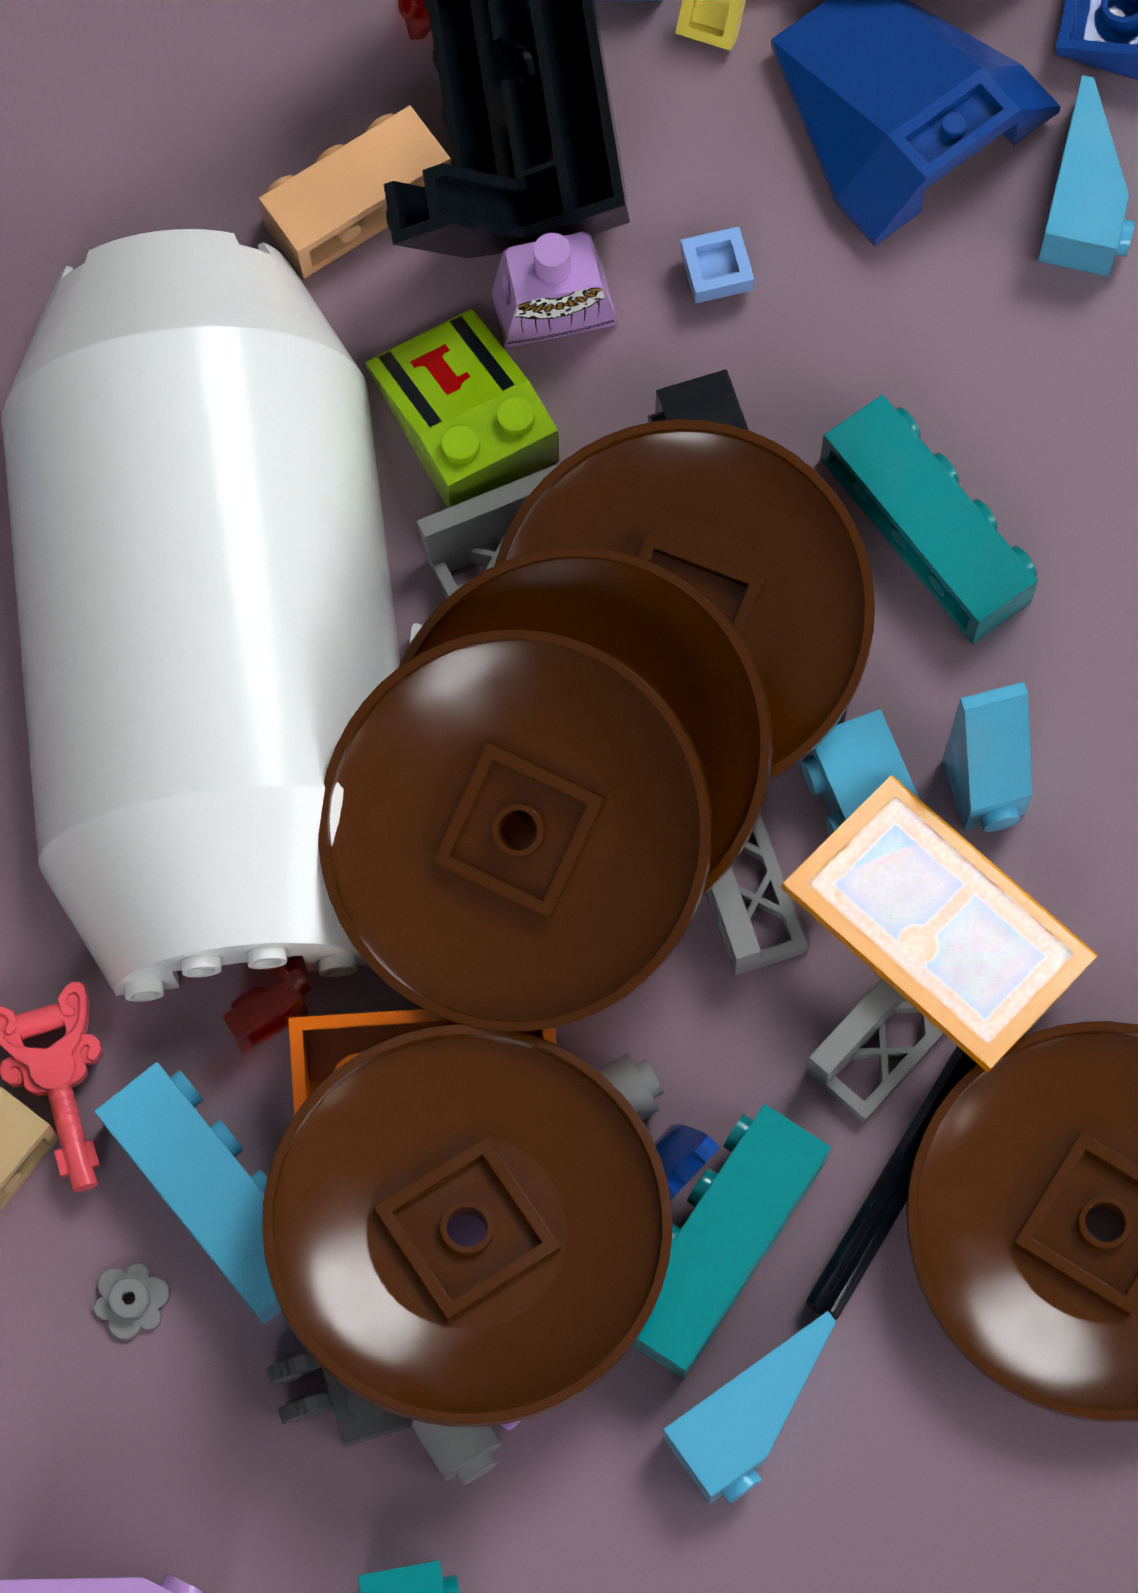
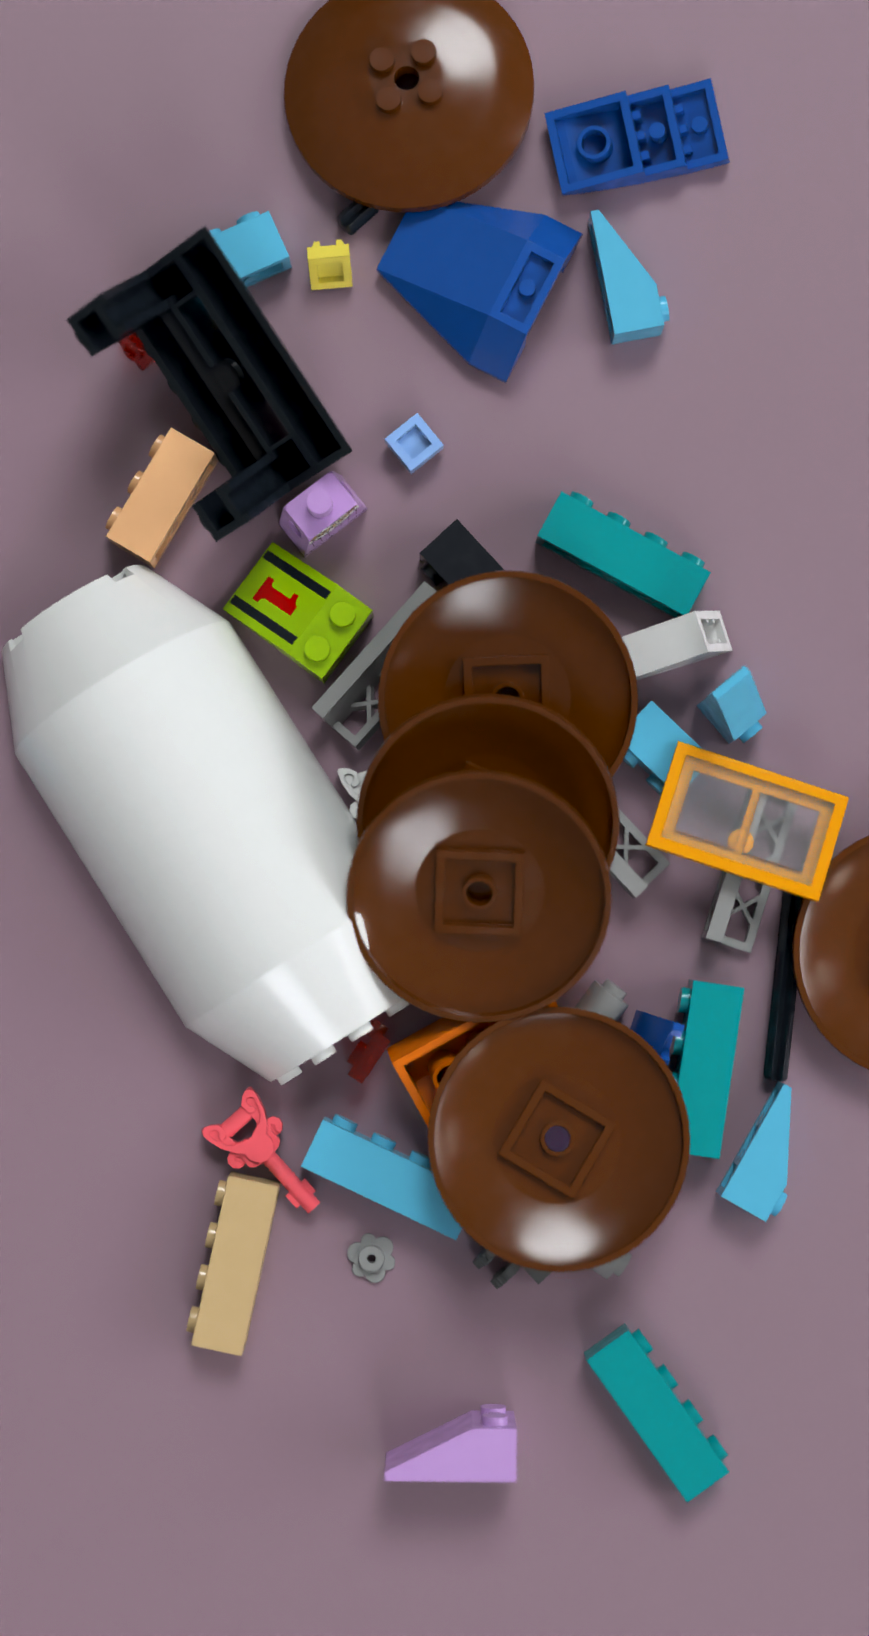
camera: 30 degrees left, 15 degrees up
(943, 652) = (677, 643): none -> white slope

